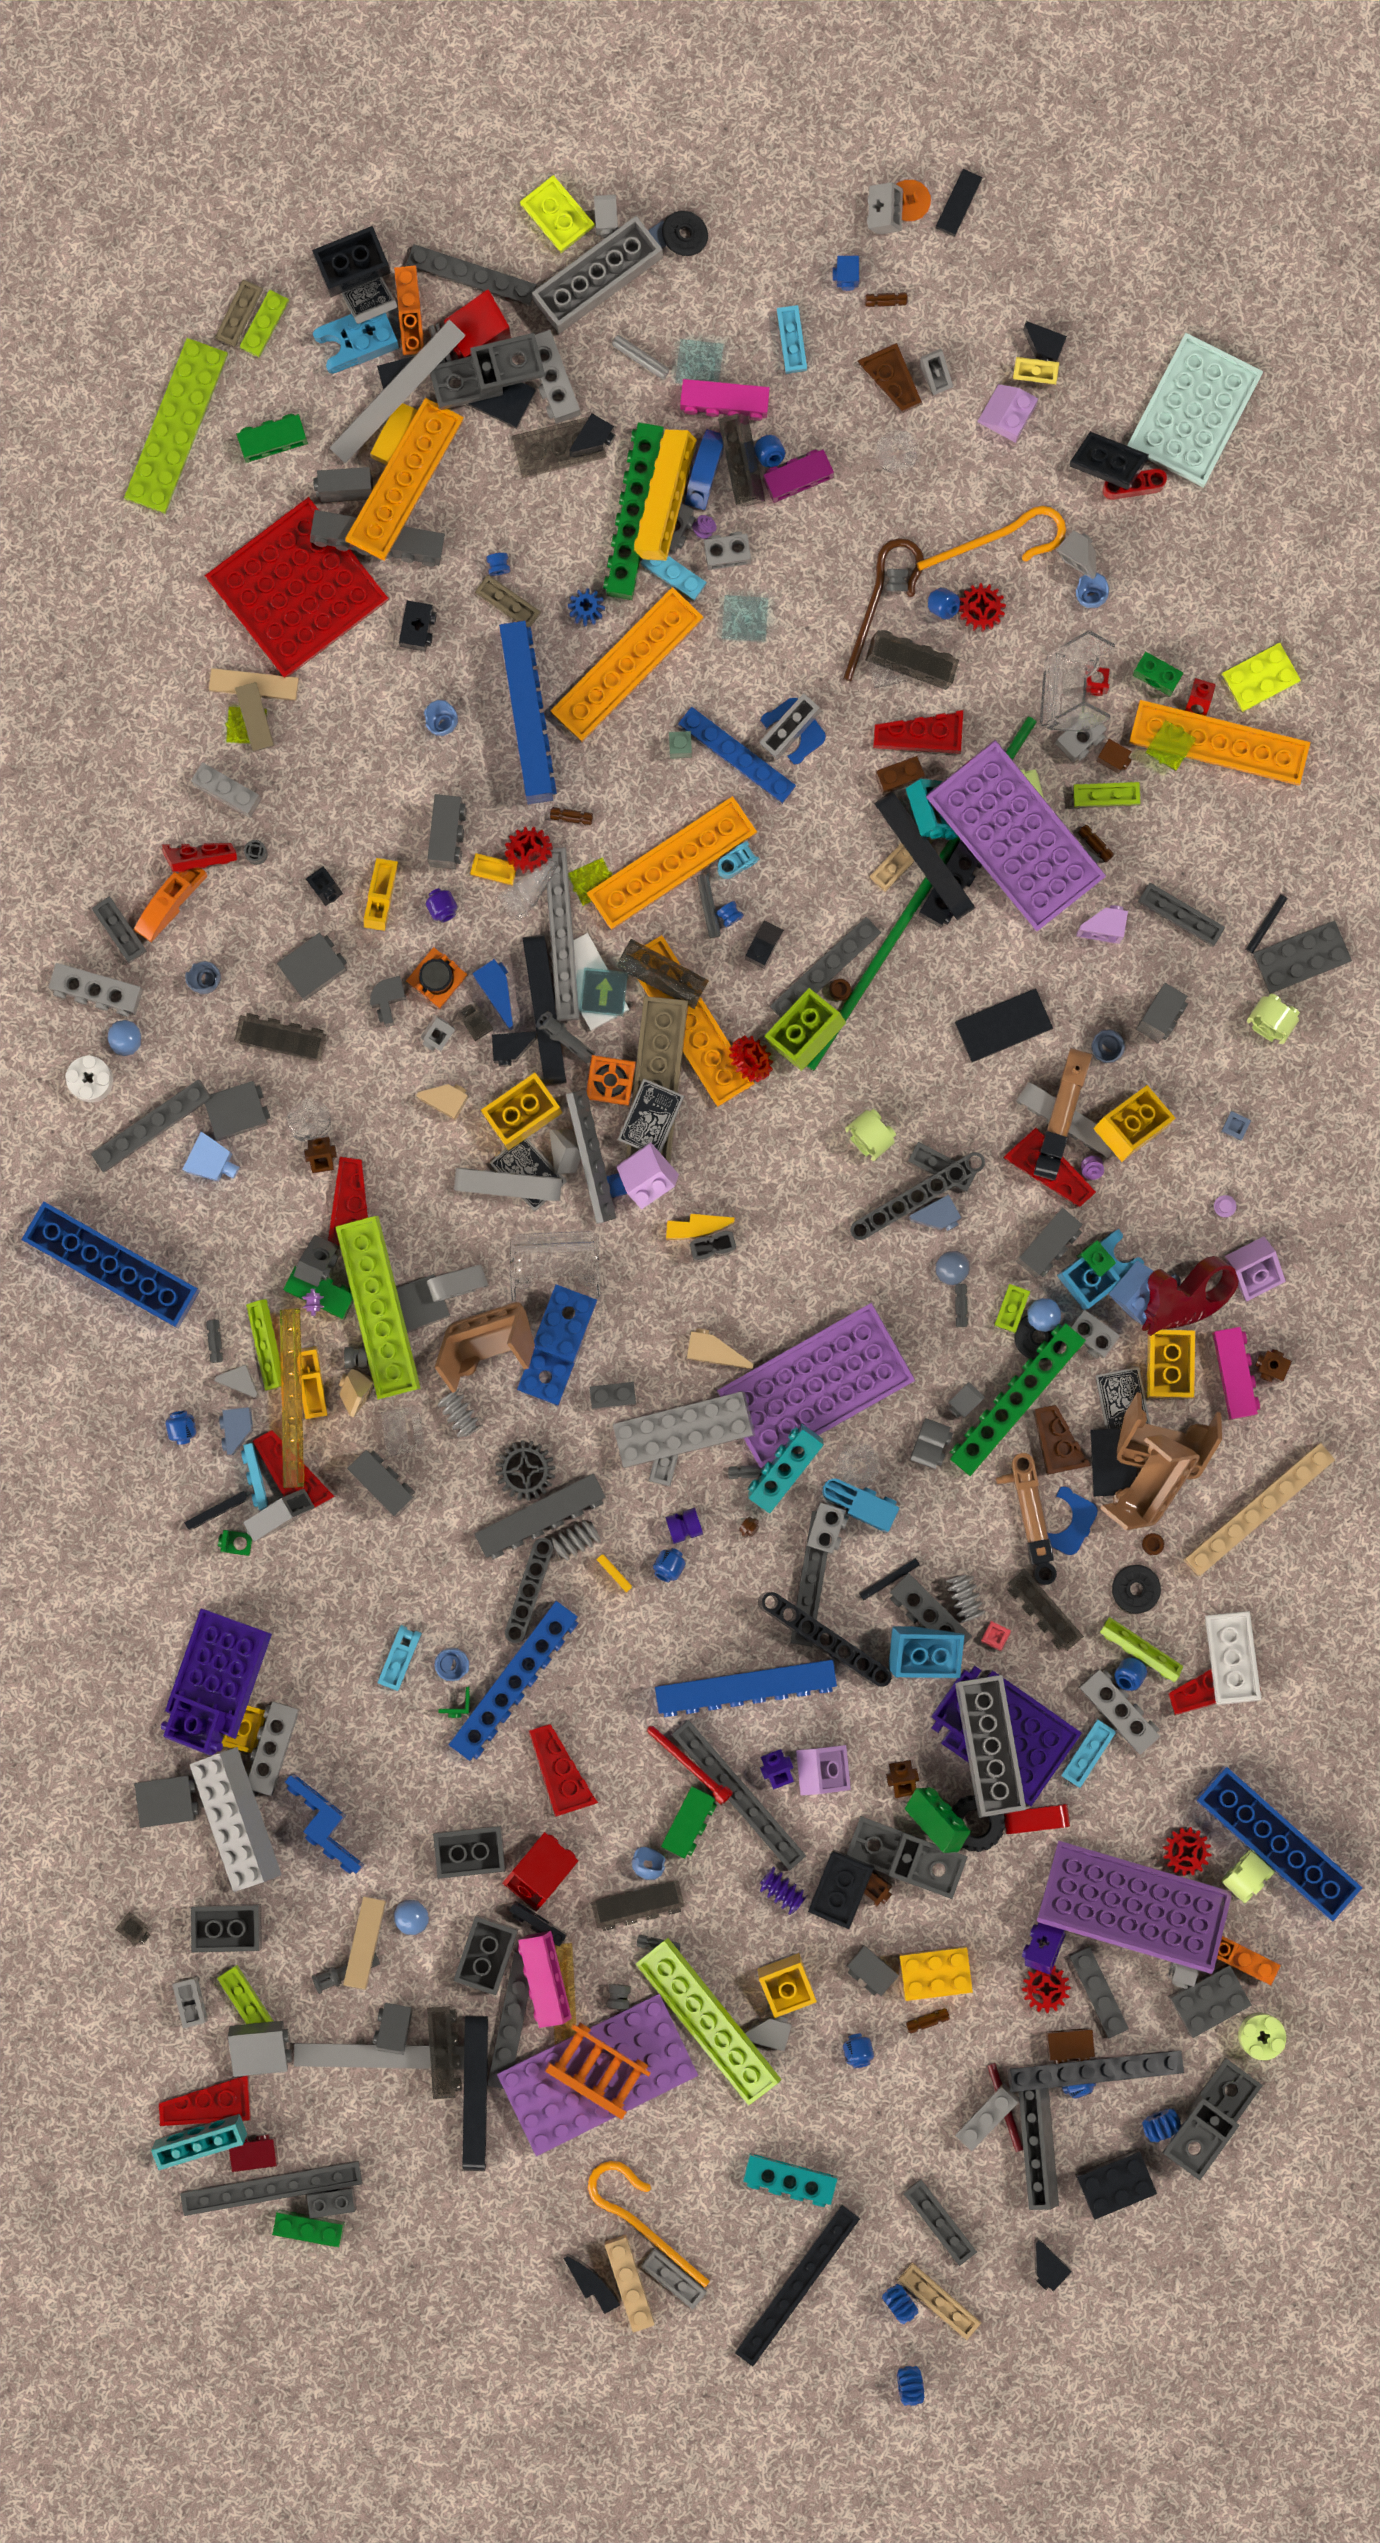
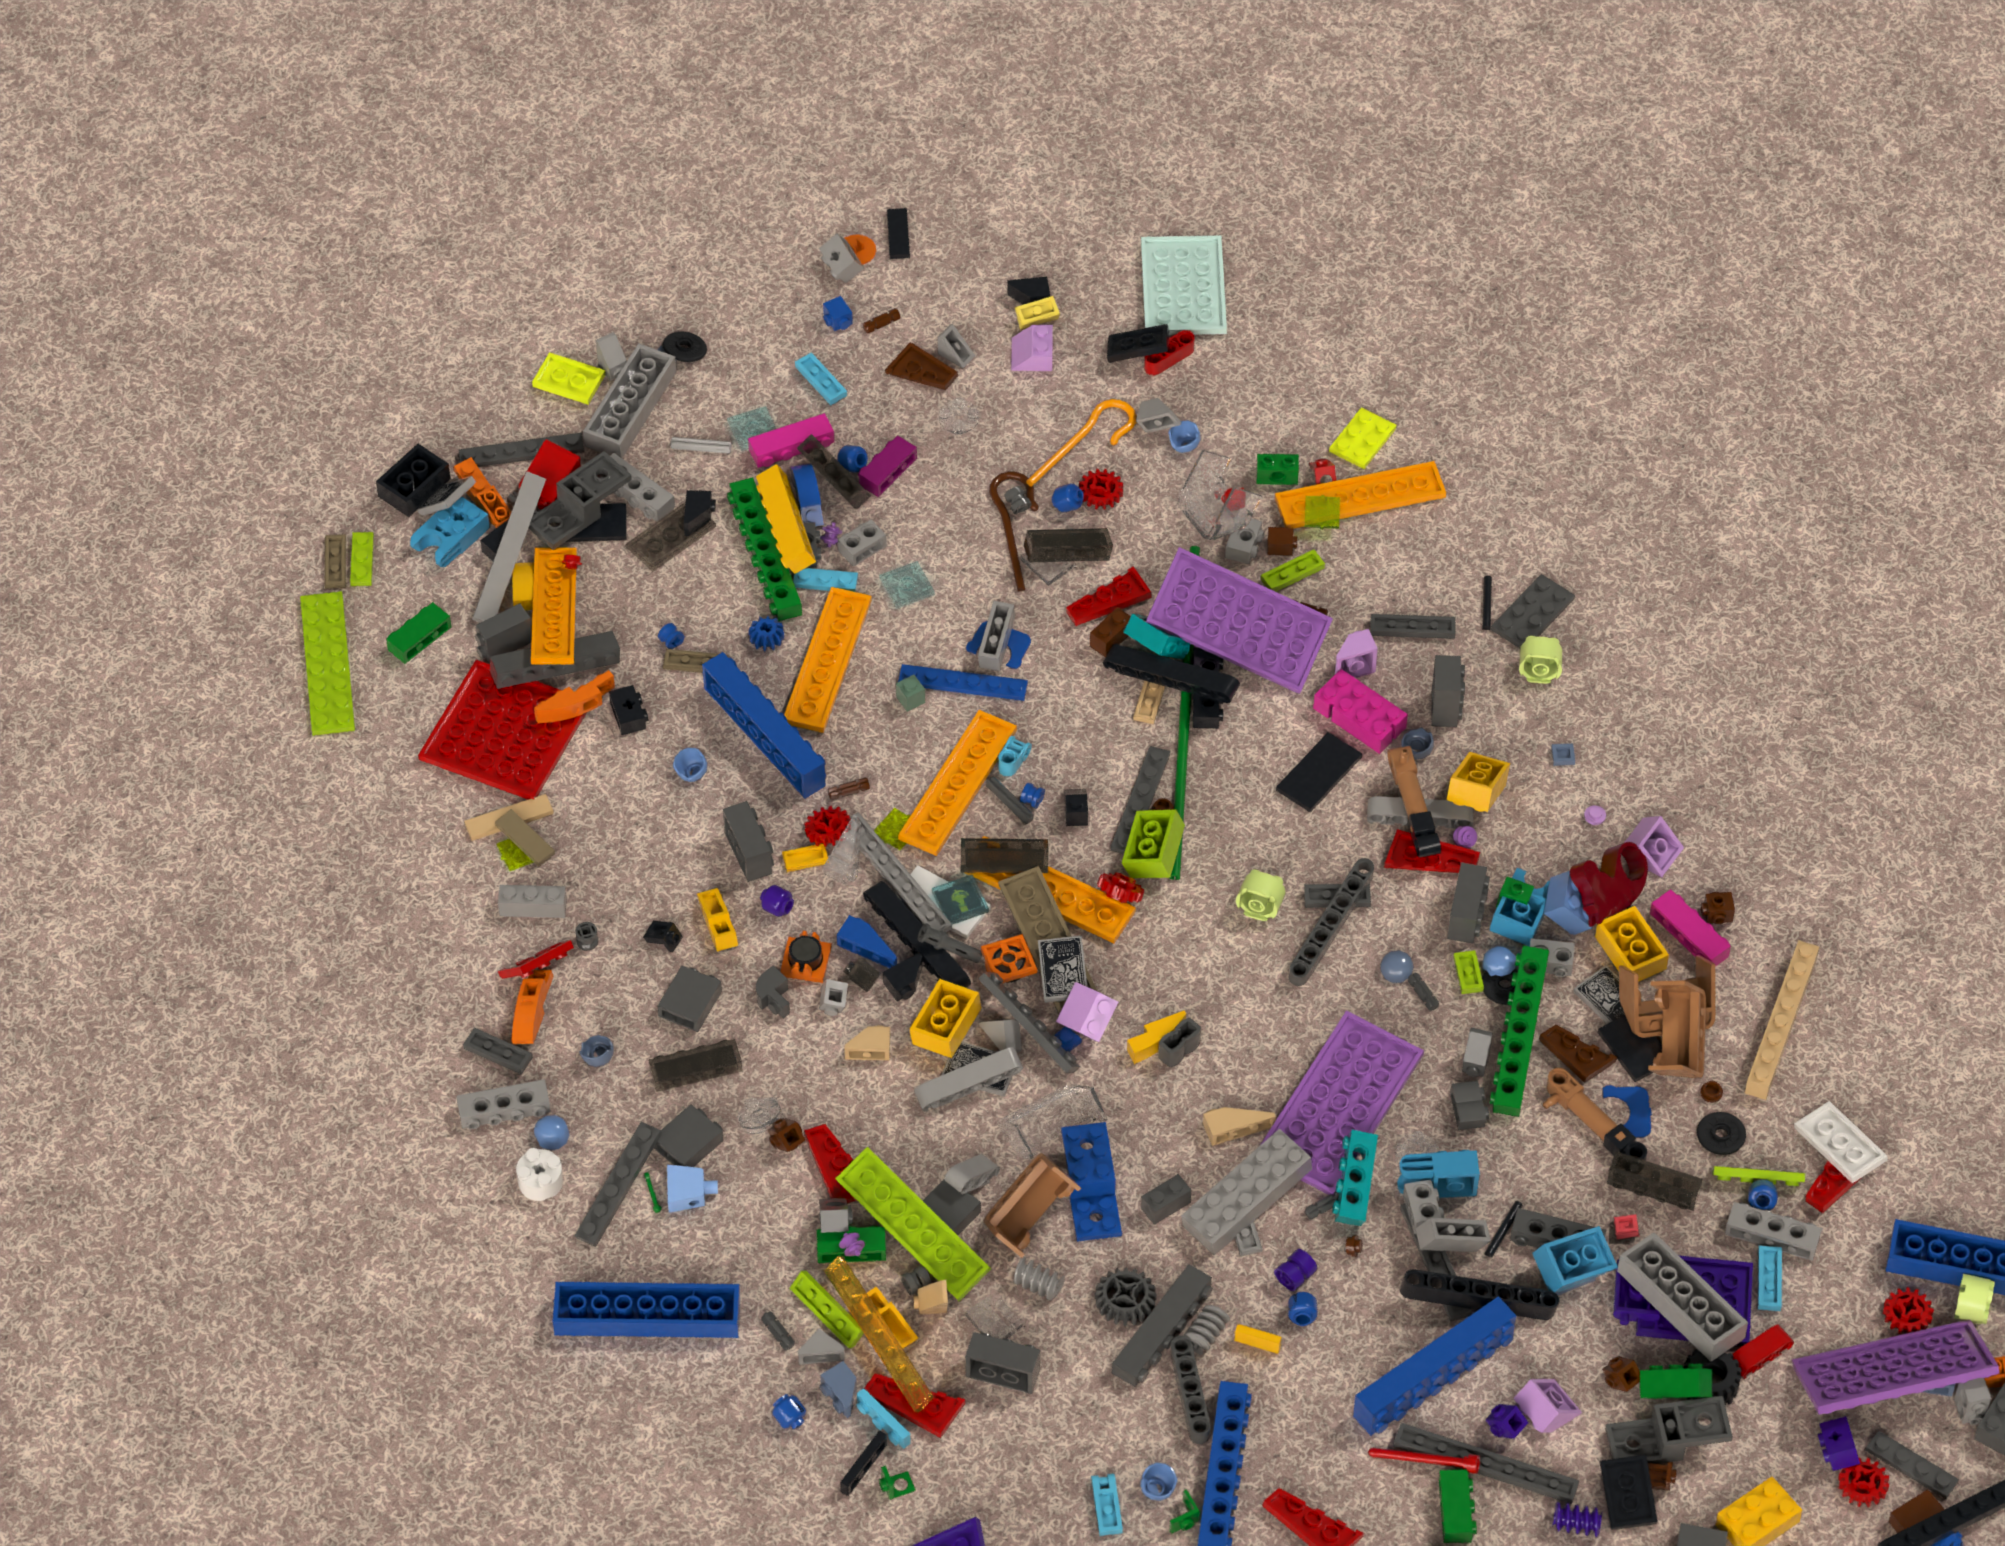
camera: 30 degrees left, 30 degrees down
(176, 1163) = (656, 1208): none -> green hinge
(278, 1515) = (924, 1429): brick -> none
(363, 596) = (571, 703): none -> orange slope
(445, 438) = (571, 561): none -> red plate
(834, 1572) = (1453, 1234): none -> light grey brick
(938, 1215) = (1357, 931): sand blue slope -> none
(966, 1597) = (1578, 1207): light grey piece -> none
(1076, 983) = (1360, 711): none -> dark pink piece

